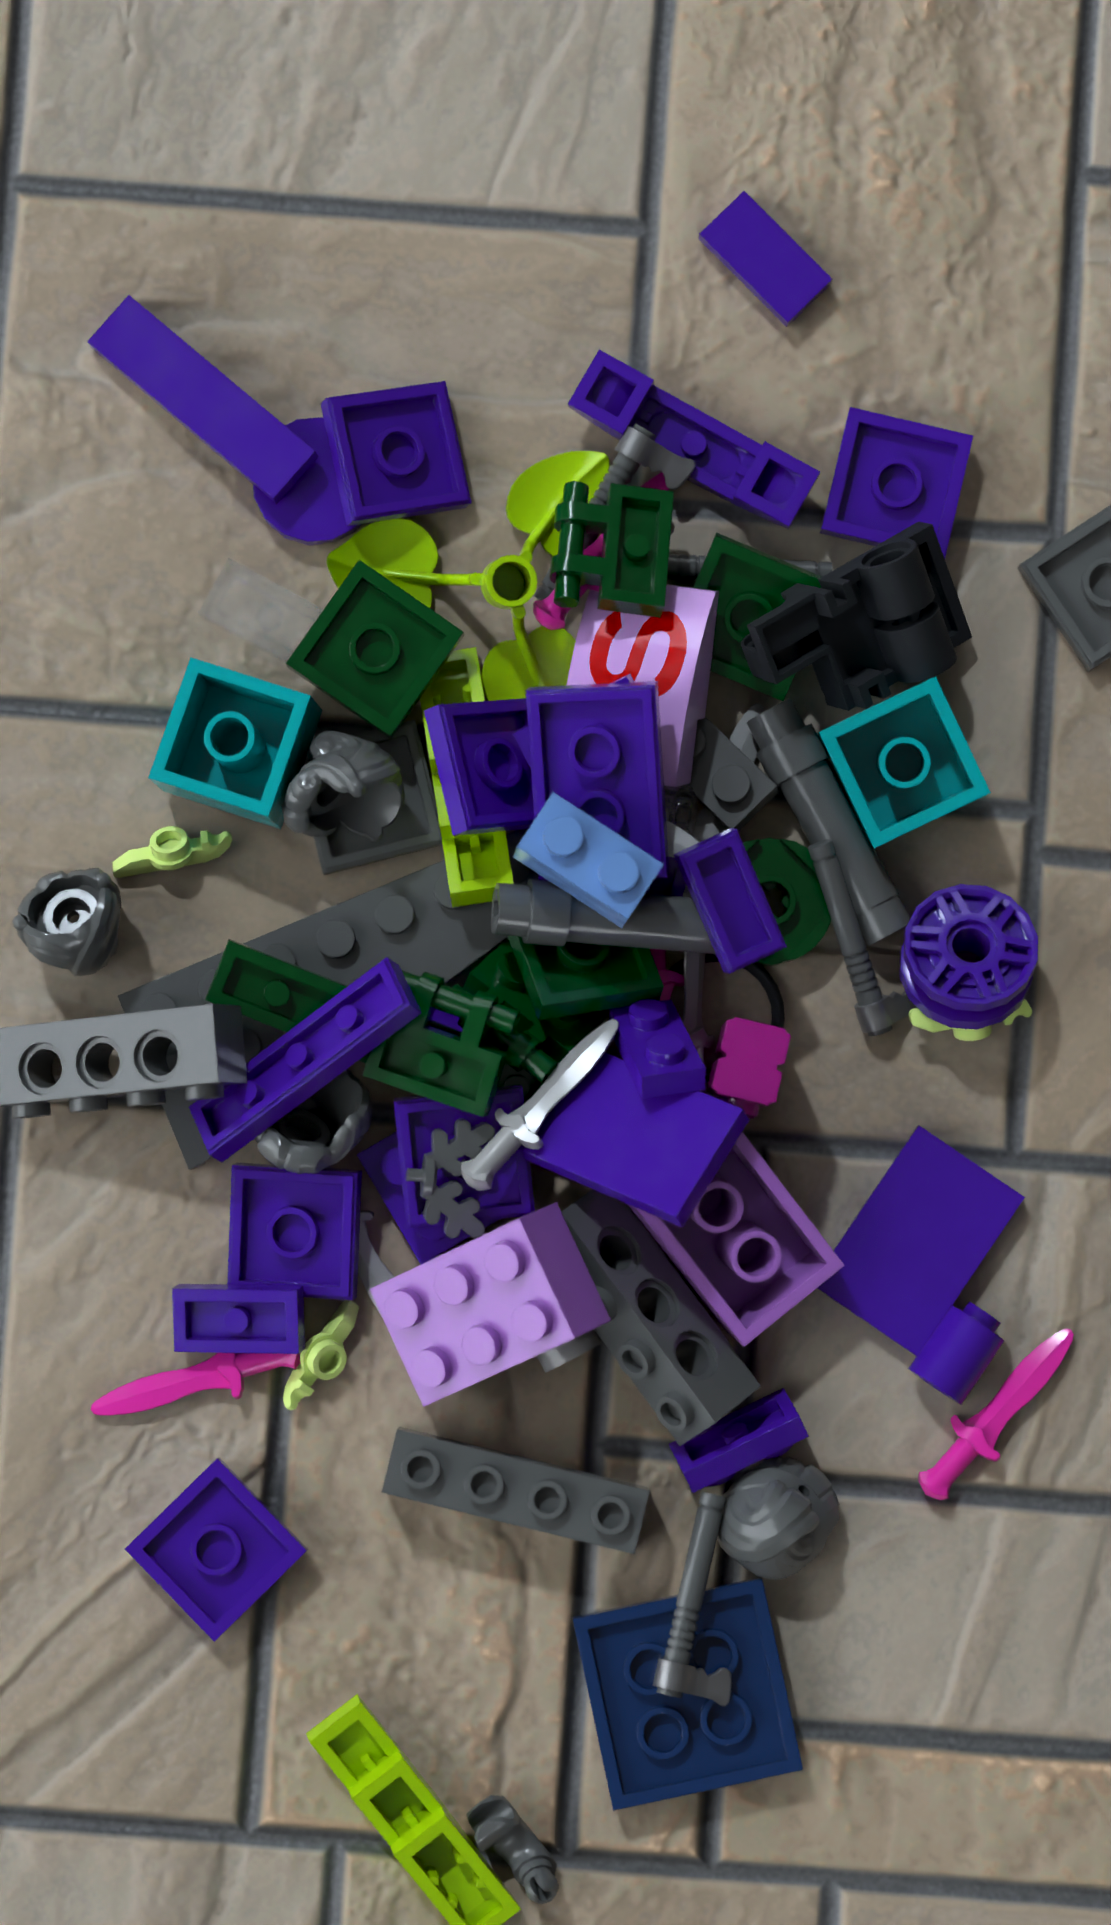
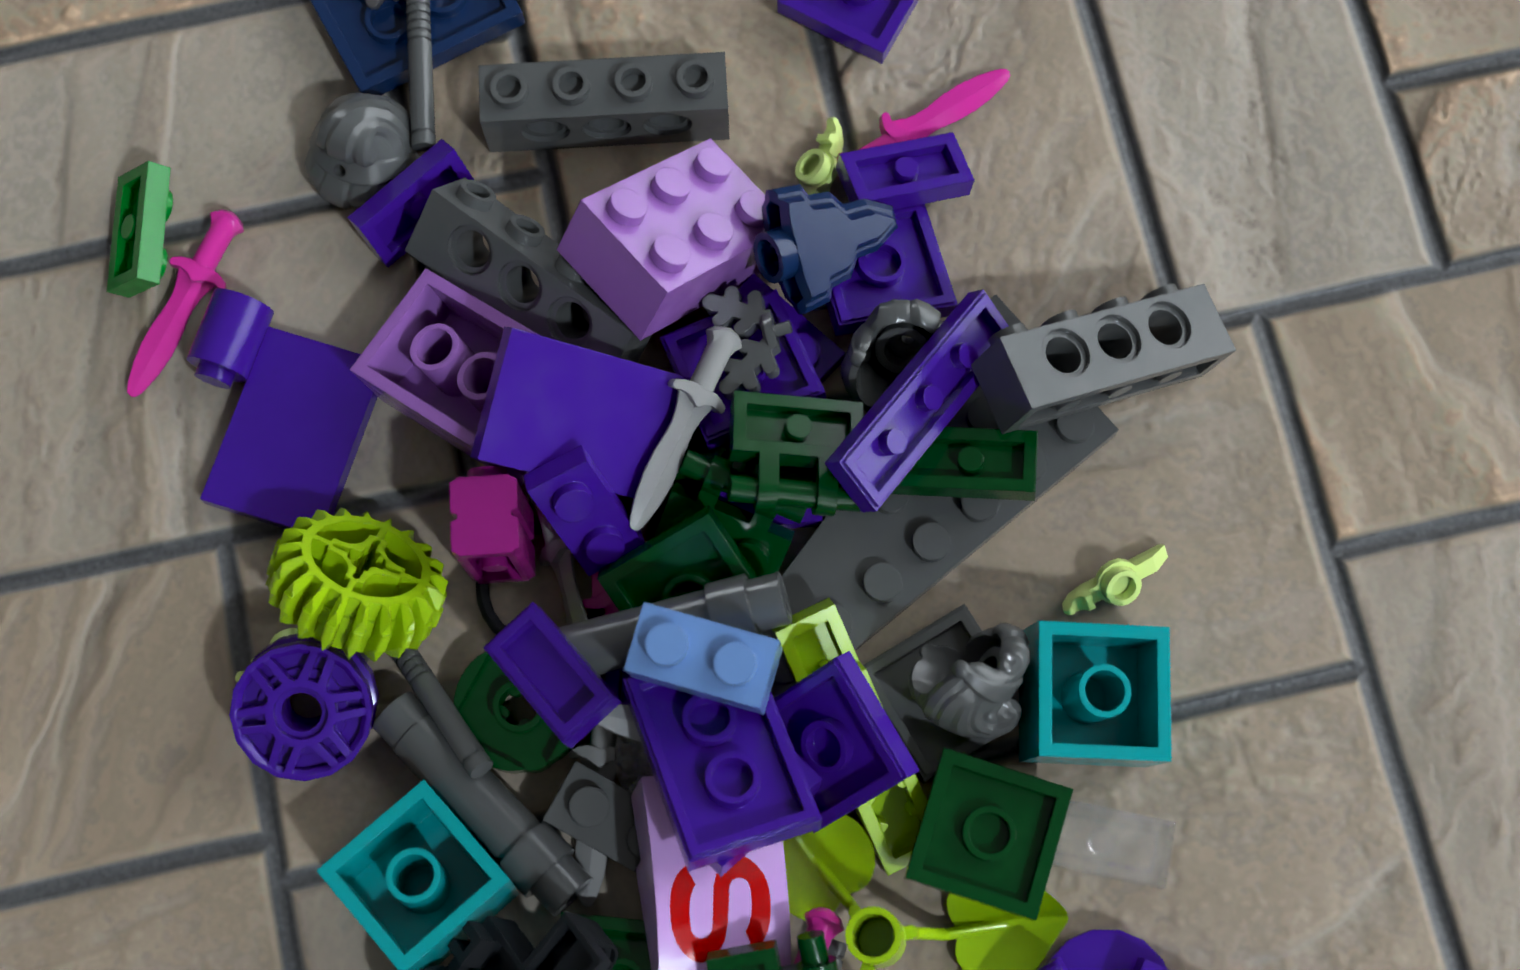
camera: 165 degrees right, 10 degrees down
(46, 925) = (1202, 462): dark grey hair -> none
(353, 1255) = (816, 241): none -> dark blue rock
(890, 1052) = (356, 584): none -> lime gear
(1022, 1497) = (139, 230): none -> green plate

